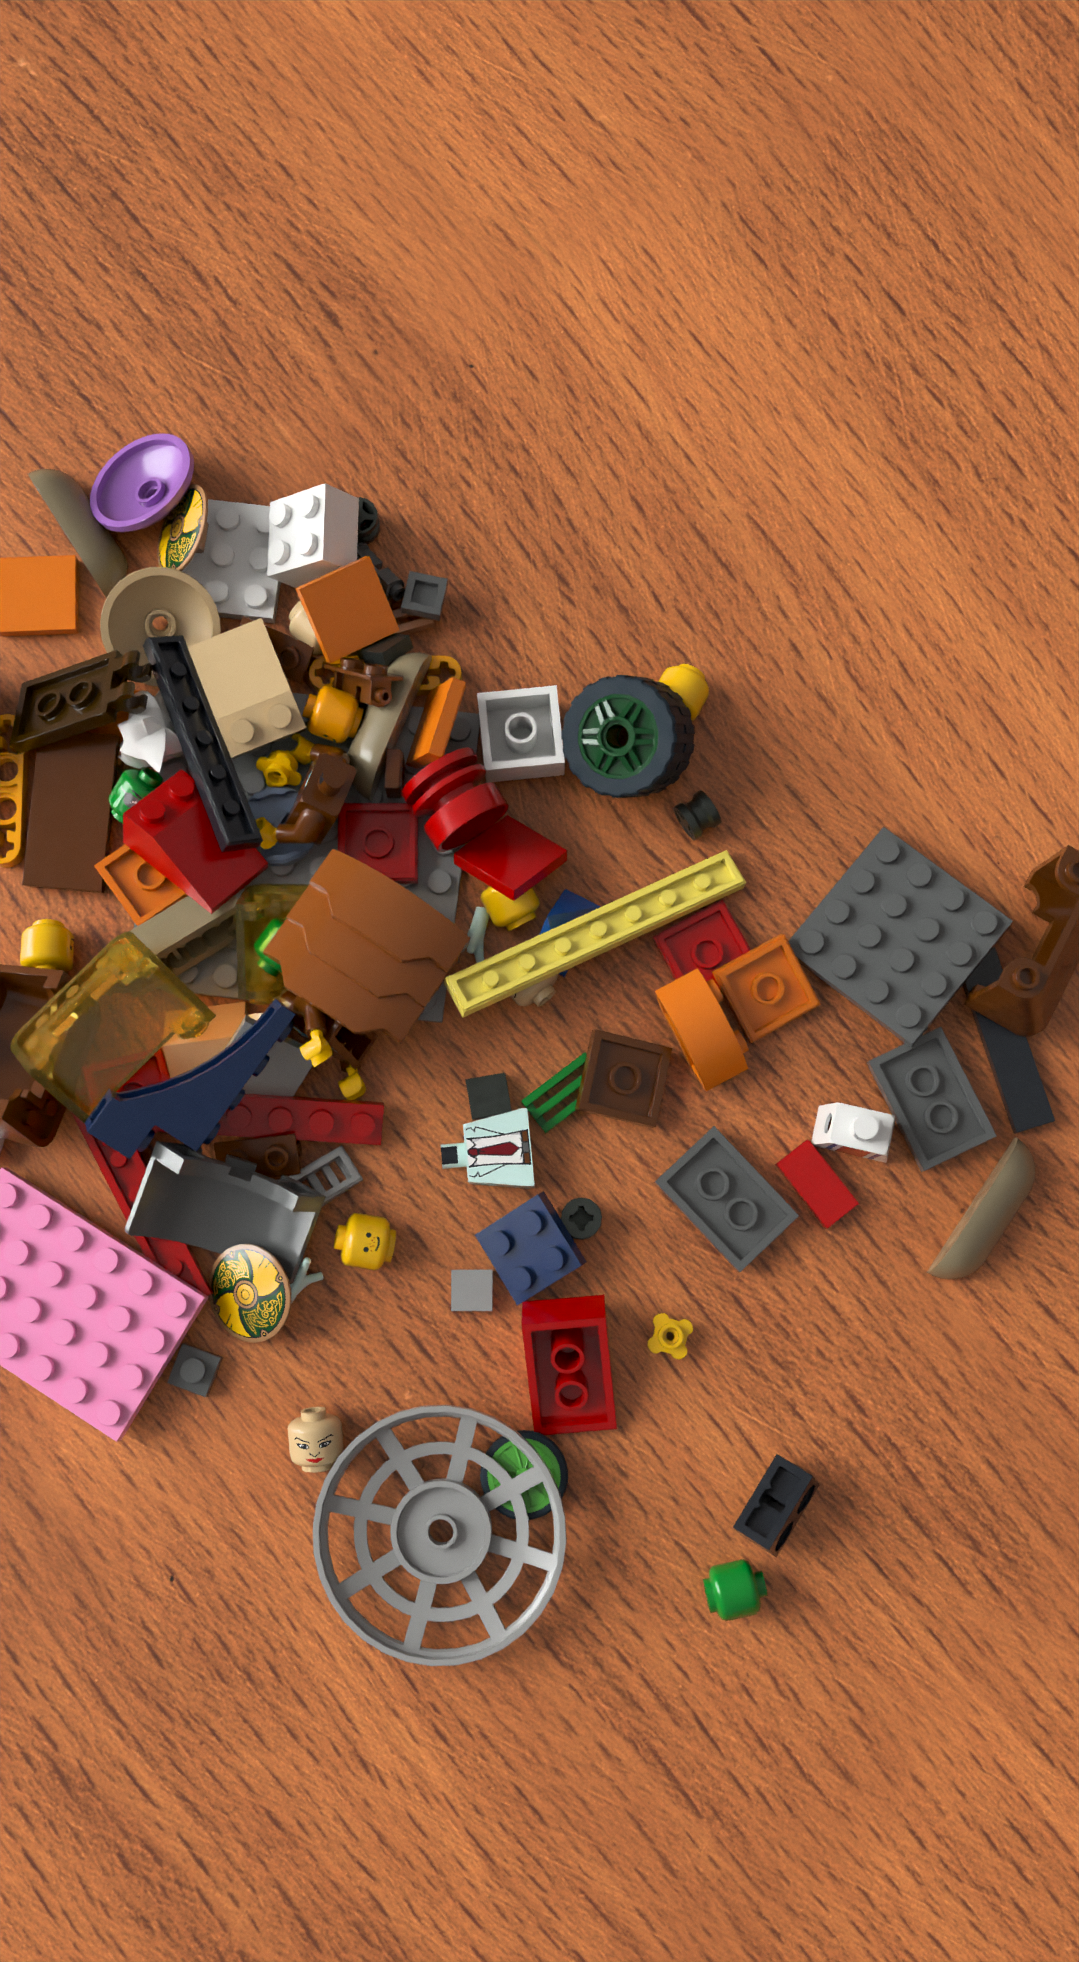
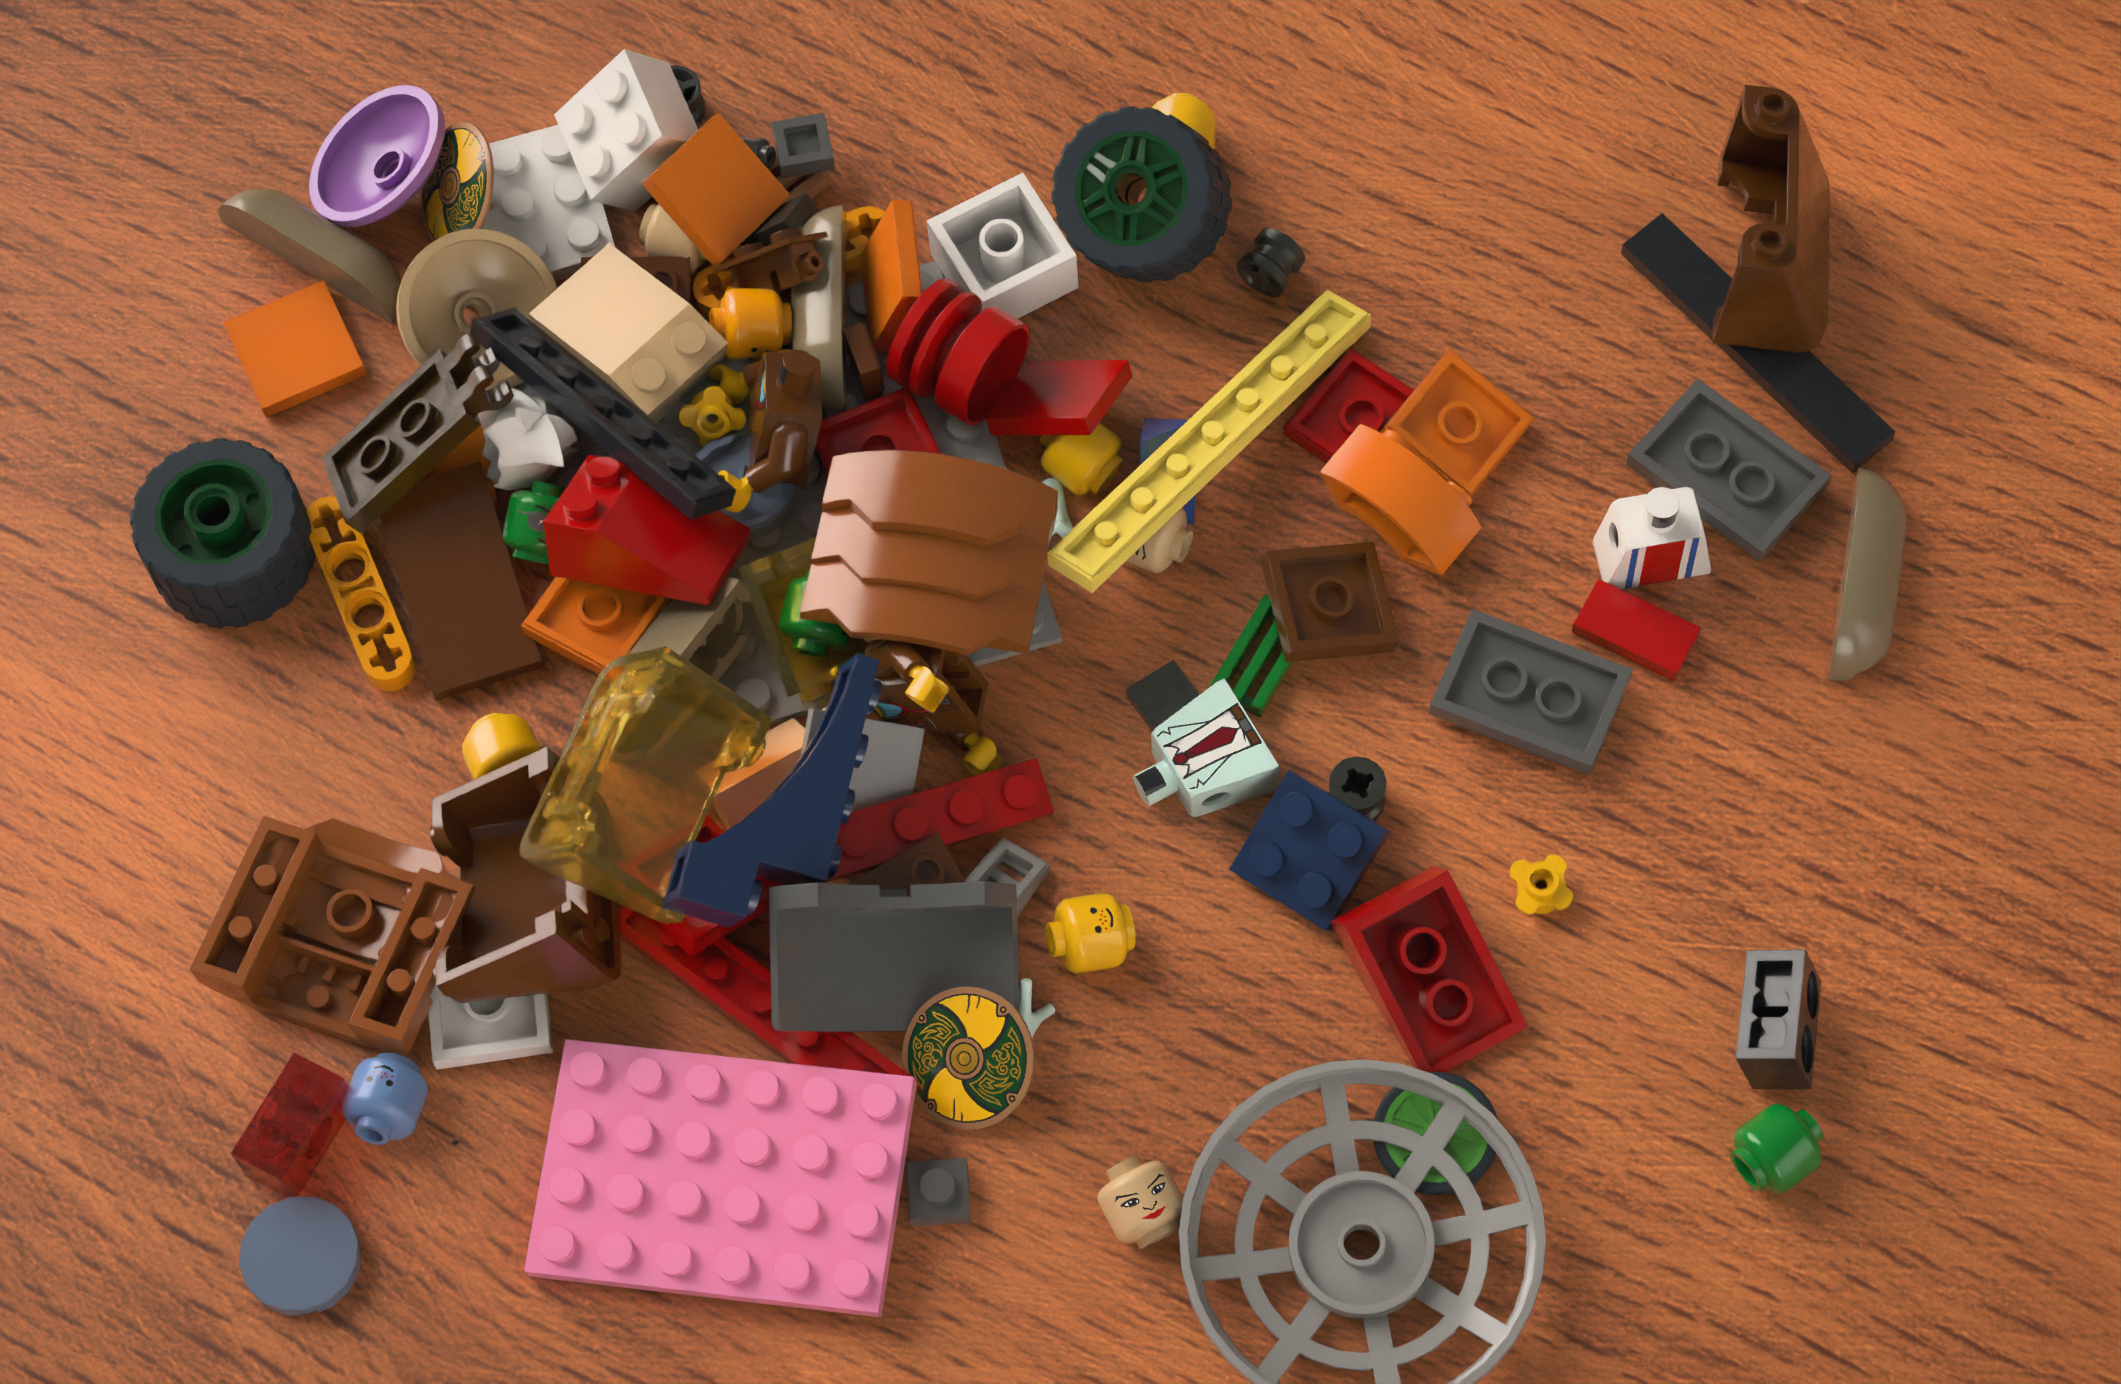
camera: 20 degrees left, 15 degrees down
(471, 1290) = (1257, 940): light grey tile -> none
(898, 936) = (1592, 298): dark grey plate -> none

